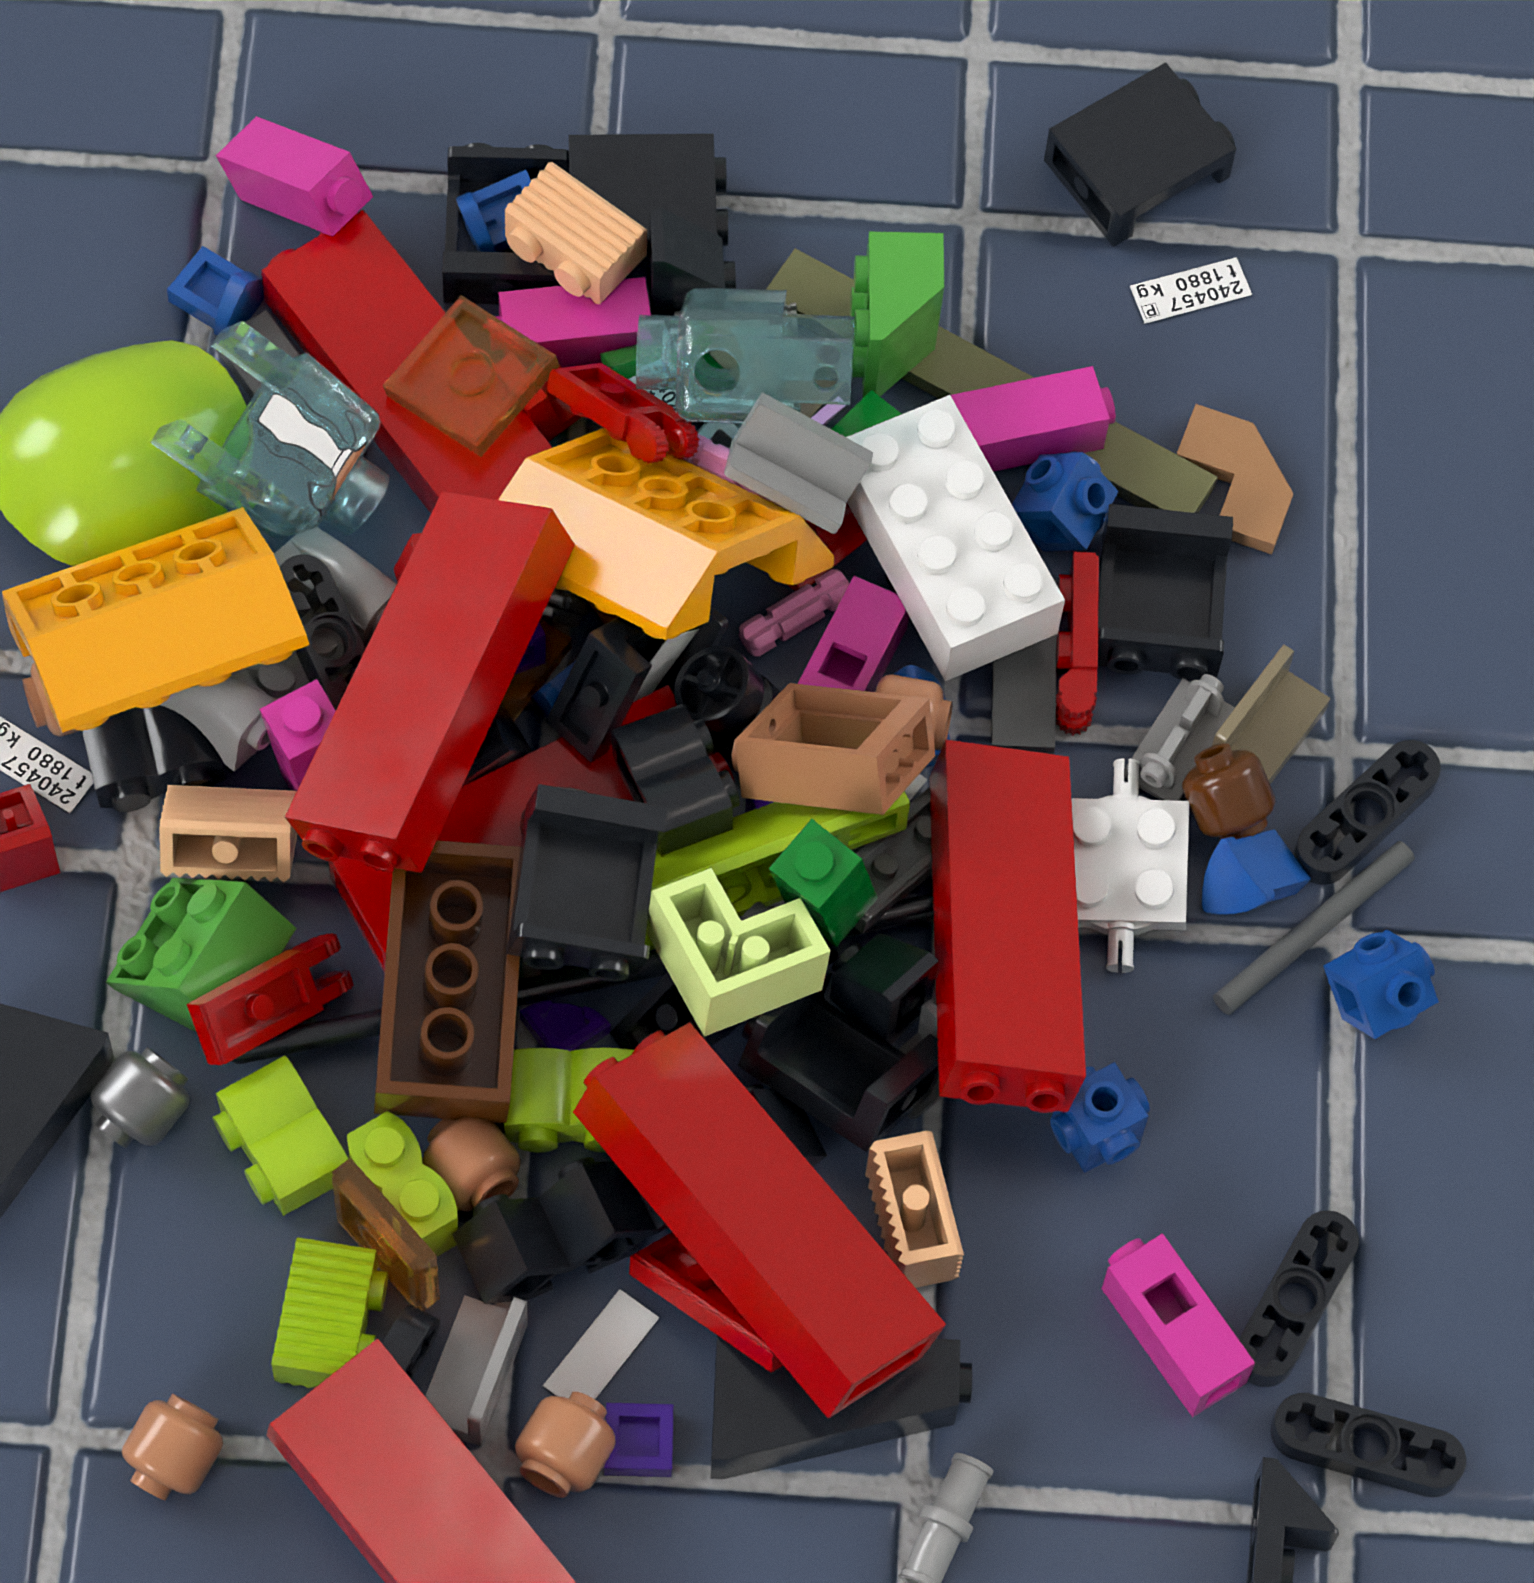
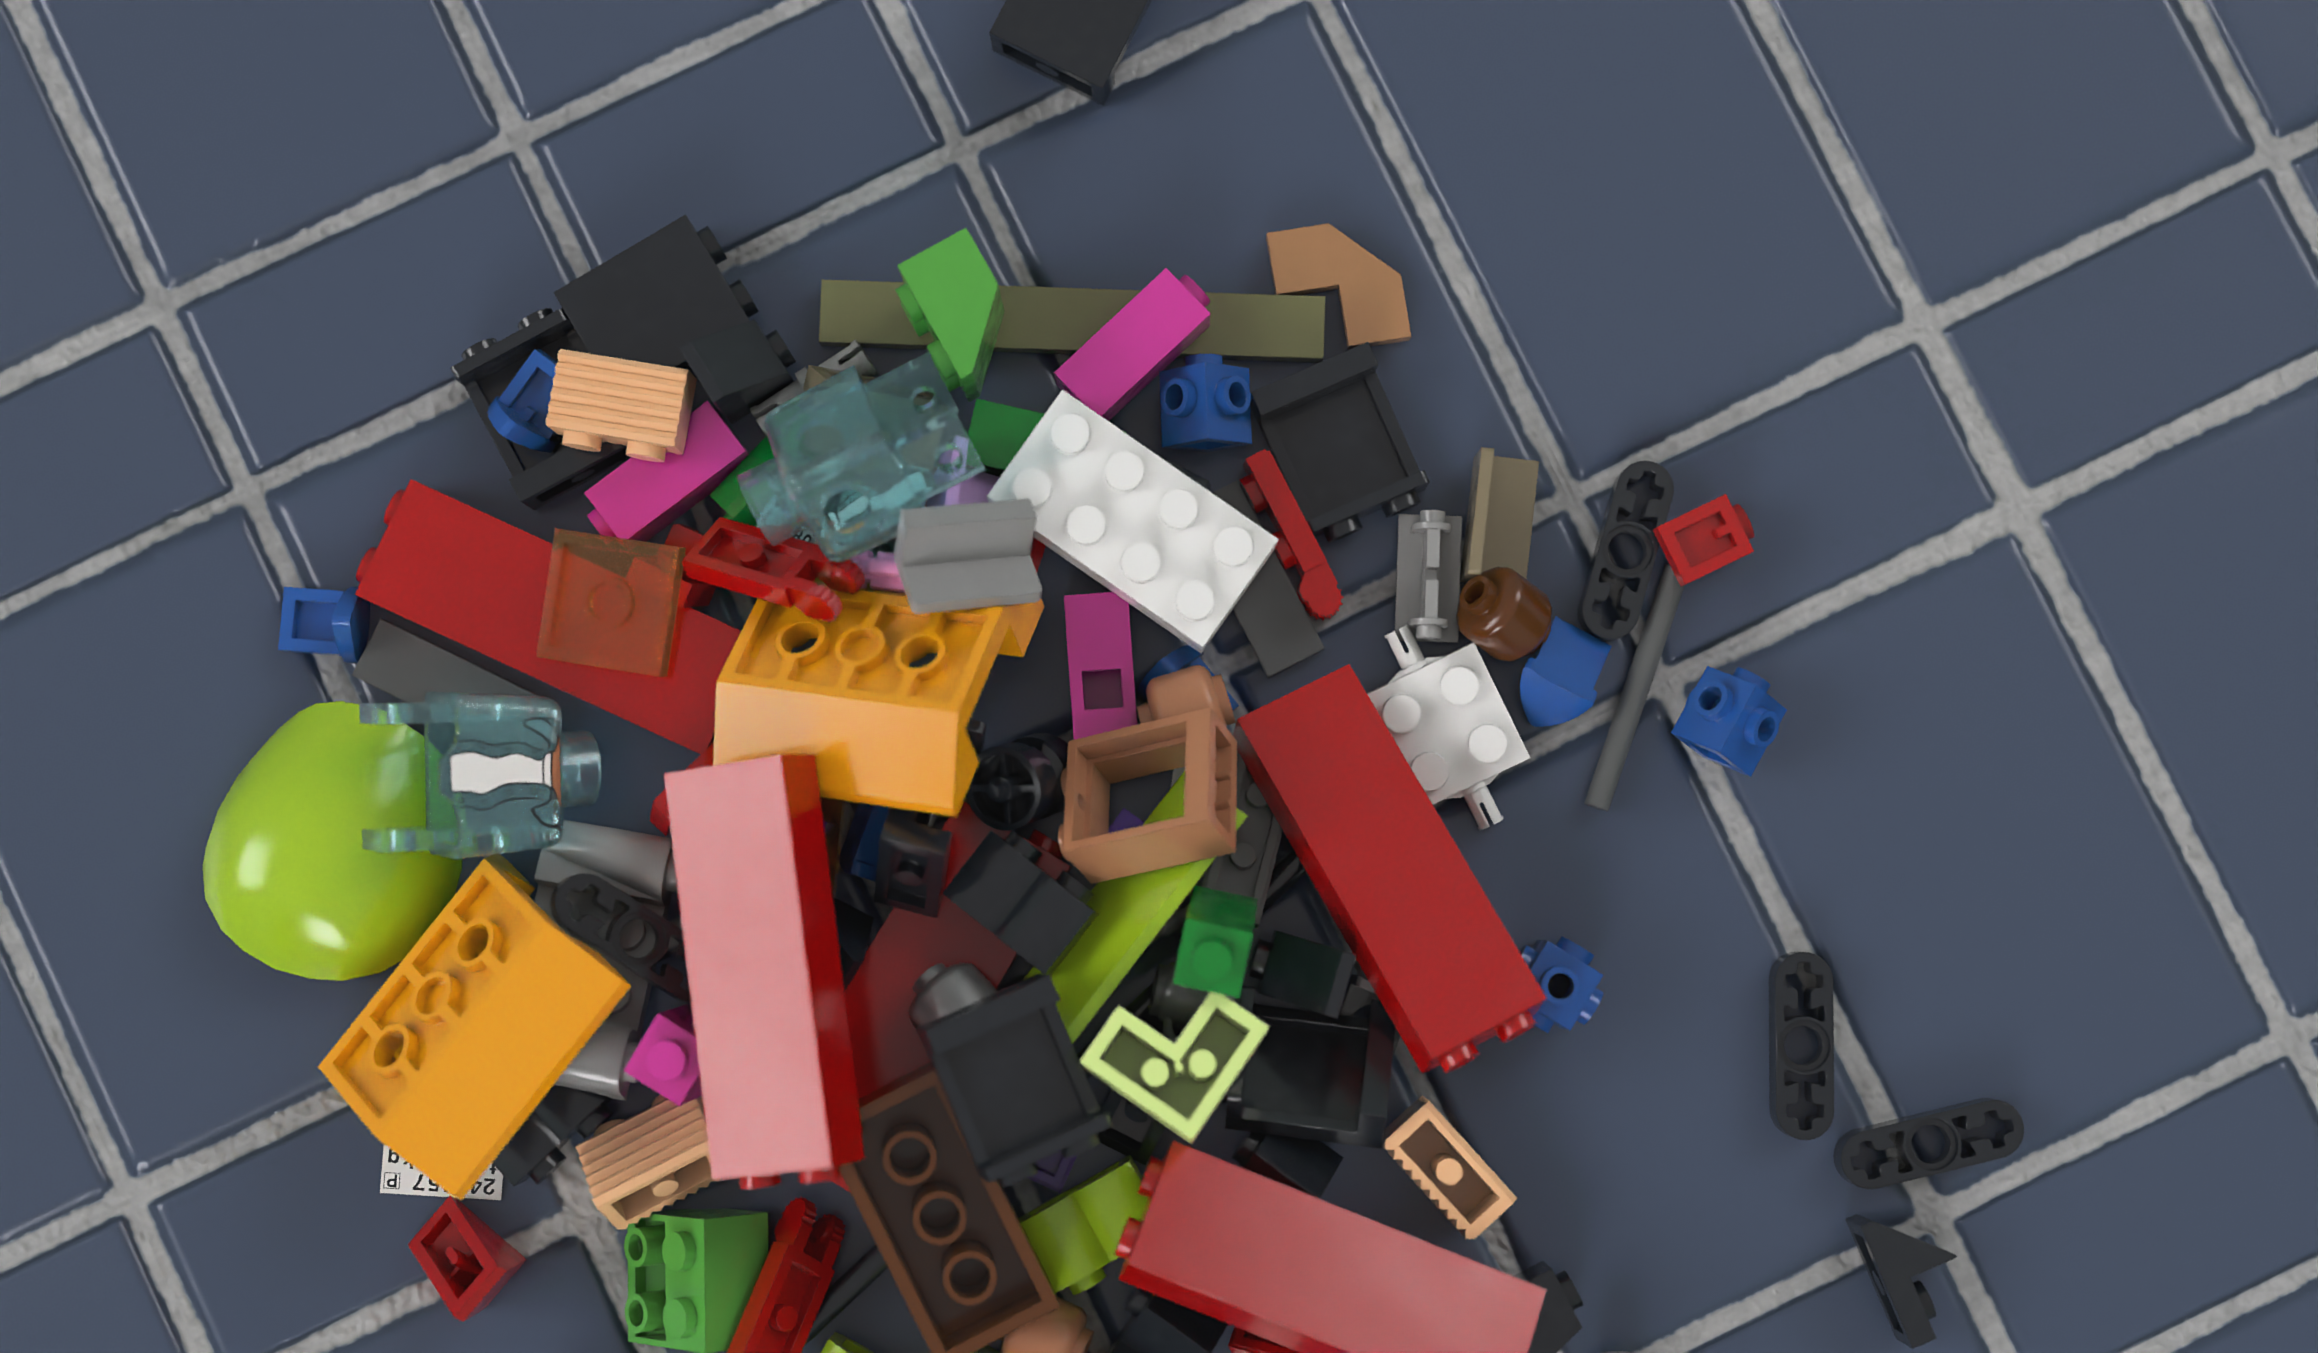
camera: 25 degrees left, 20 degrees up
(294, 176) = (327, 480): dark pink brick -> none
(793, 613) = (1006, 683): bright pink axle -> none
(1176, 1323) = (1717, 1133): dark pink brick -> none
(1190, 290) = (1197, 111): white sticker -> none
(1443, 827) = (1705, 539): none -> red bracket

